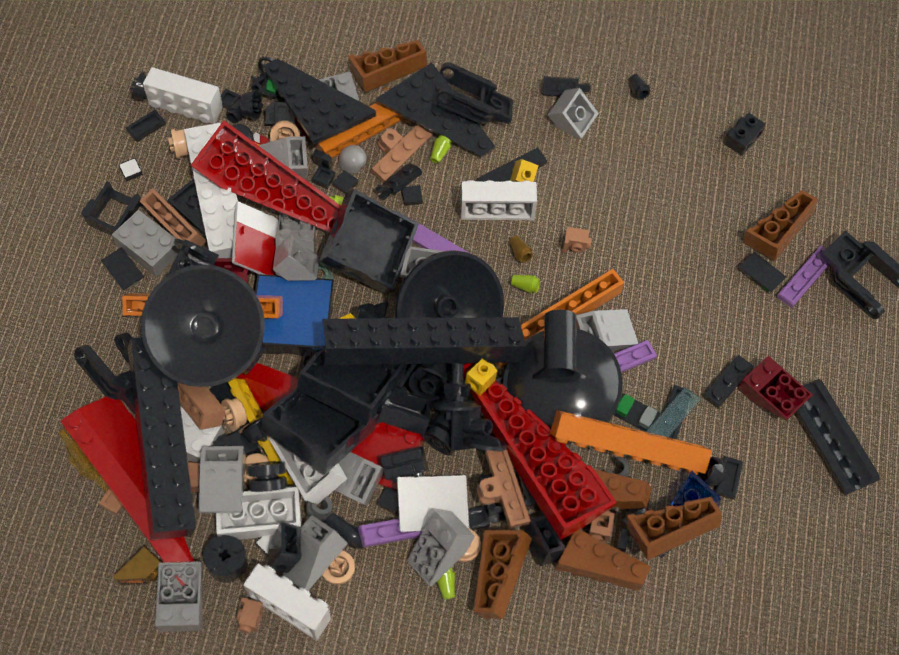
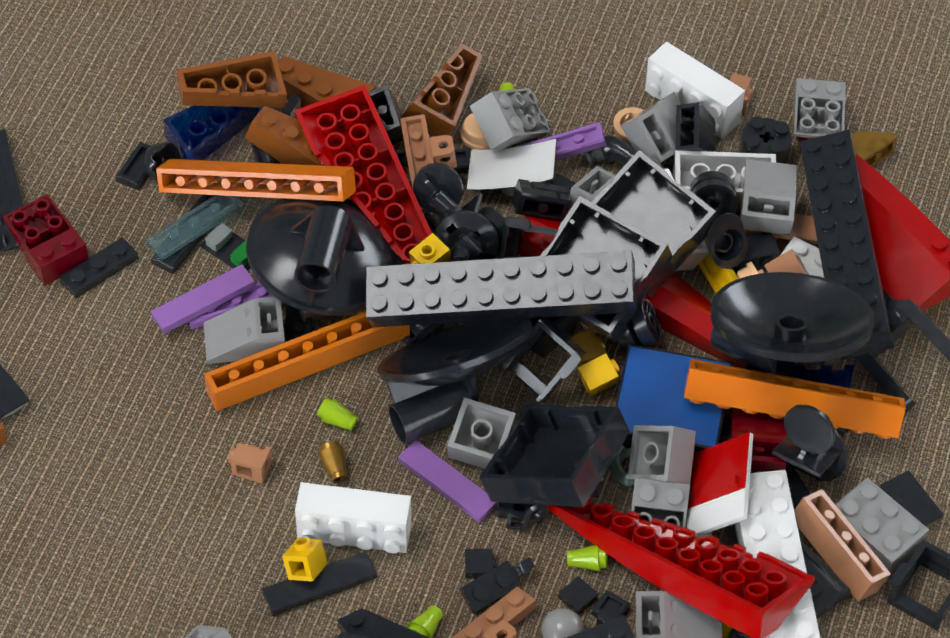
camera: 170 degrees left, 10 degrees down
(646, 353) = (203, 298): none -> medium lavender tile

